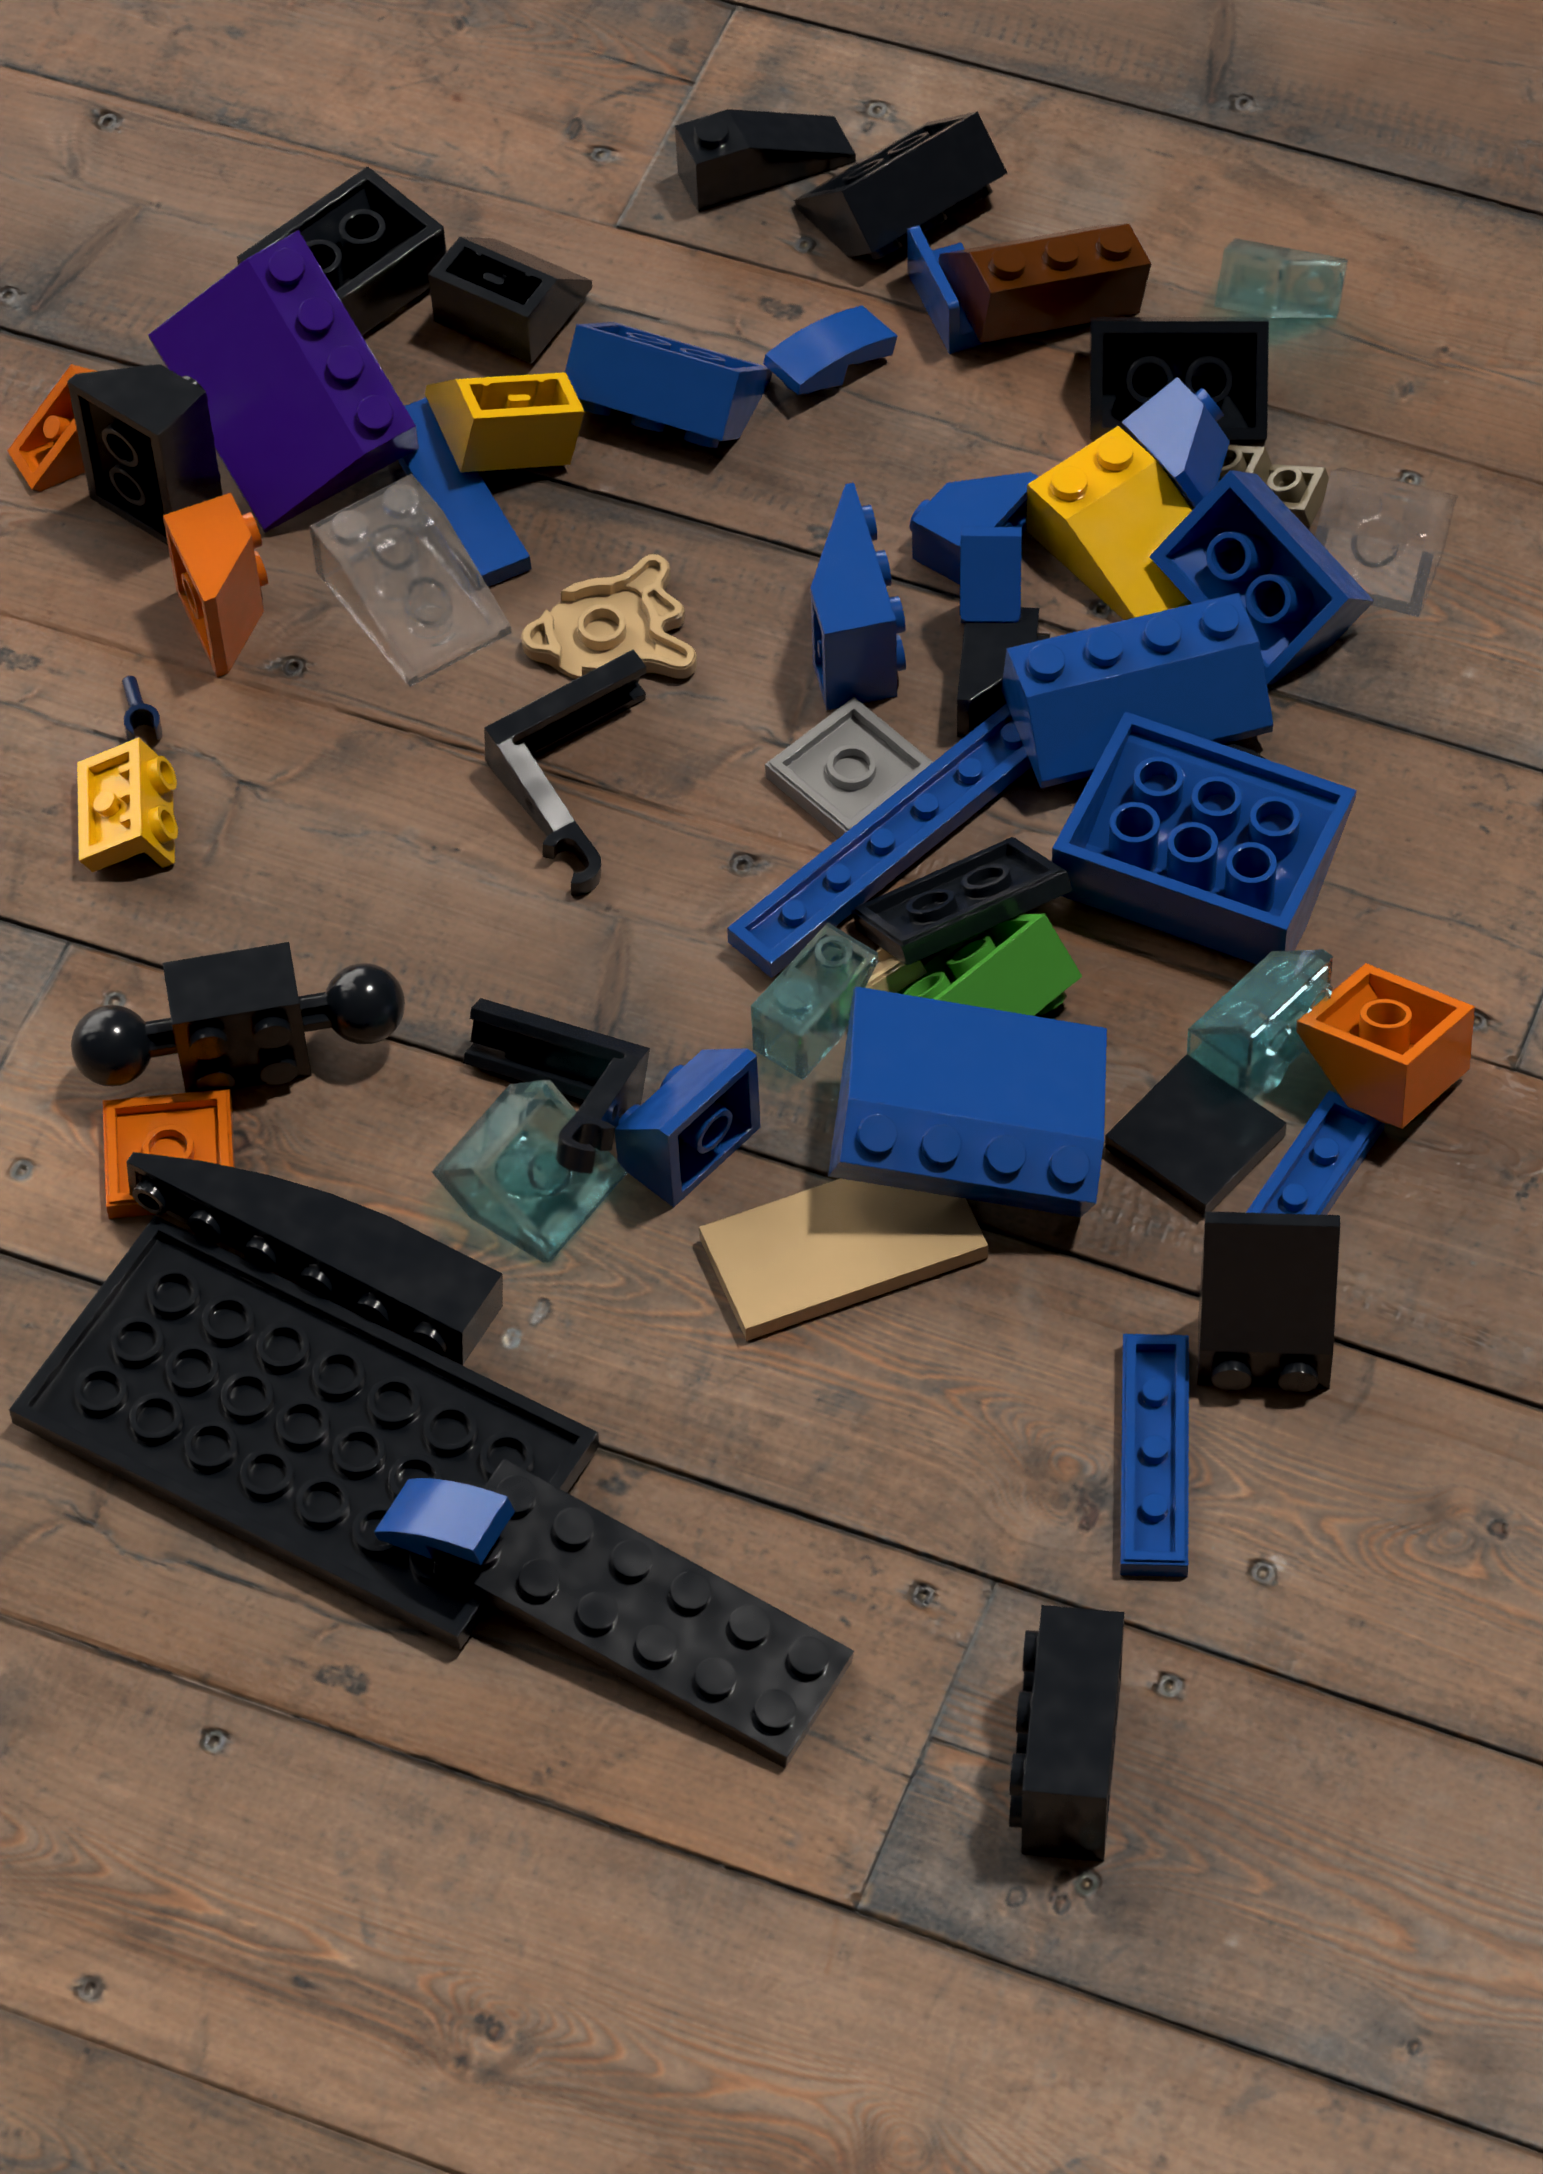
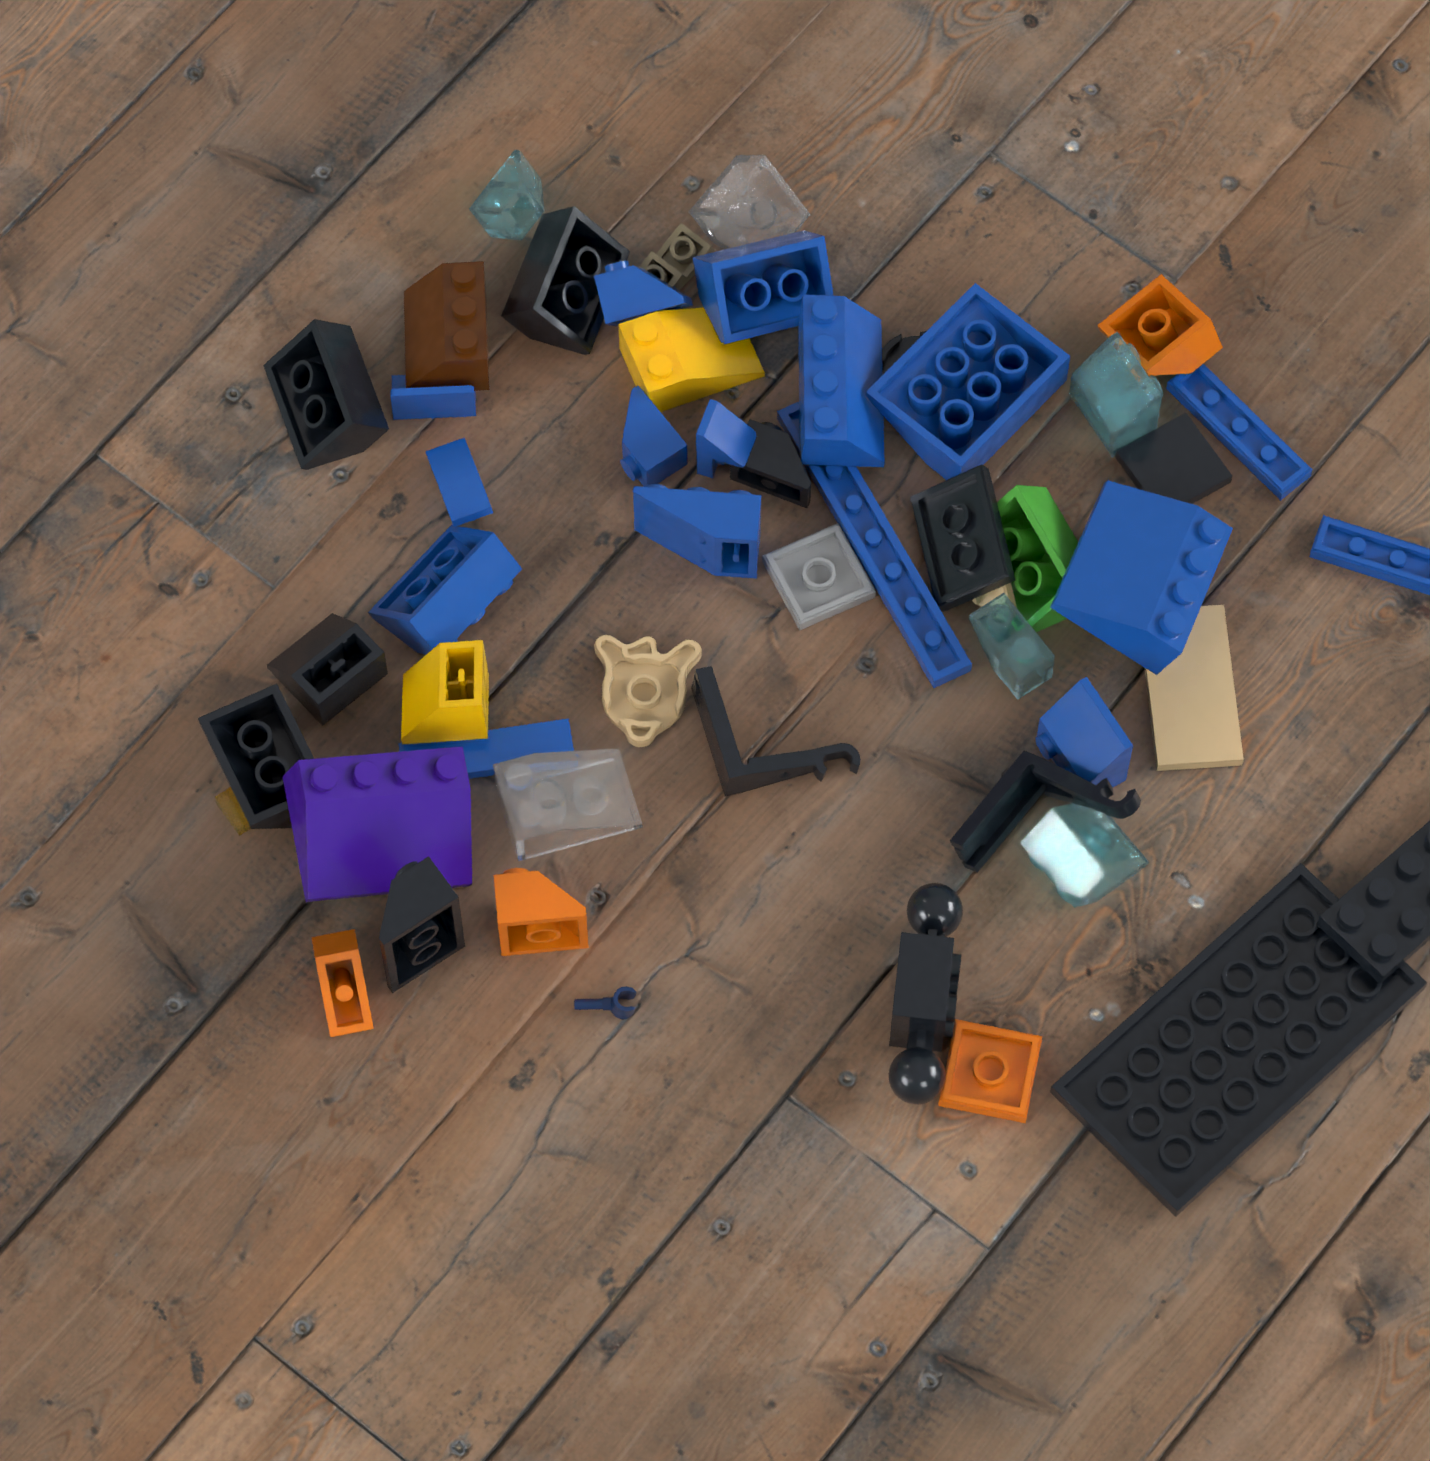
camera: 75 degrees left, 10 degrees up
(126, 806) = (696, 1029): yellow bracket -> none
(330, 1248) = (1119, 980): black slope -> none
(446, 1518) = (1361, 959): slope -> none
(755, 151) = (257, 477): black slope -> none
(1268, 1300) = (1343, 460): black slope -> none

